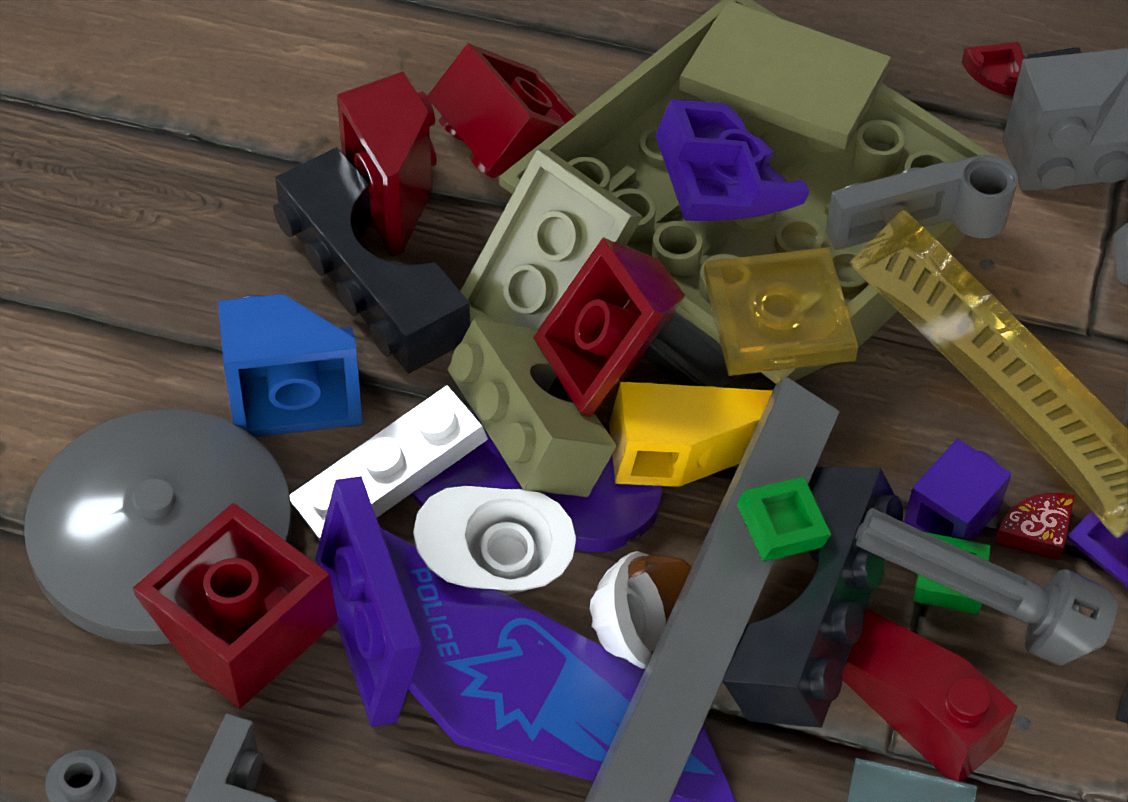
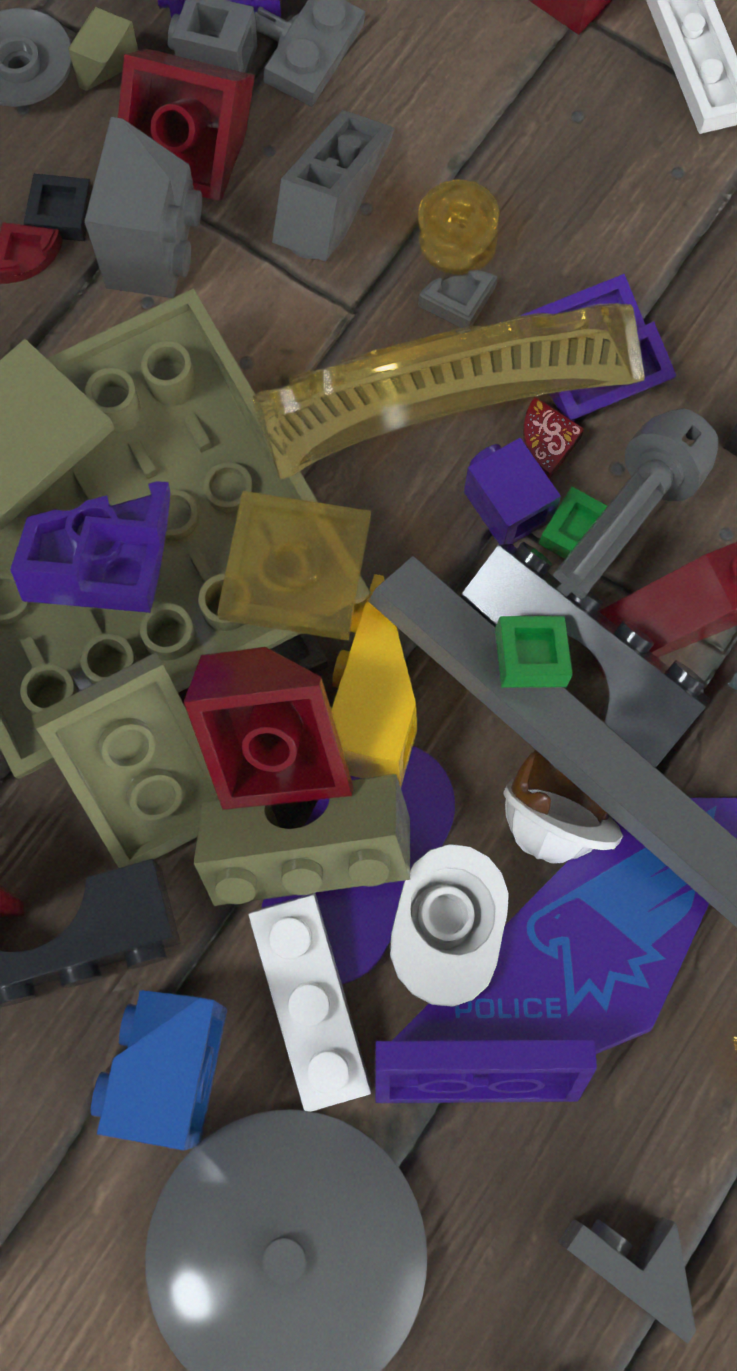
camera: 70 degrees left, 20 degrees up
(238, 603) = (434, 1208): dark red slope -> none
(969, 192) = (215, 381): dark grey plate -> none

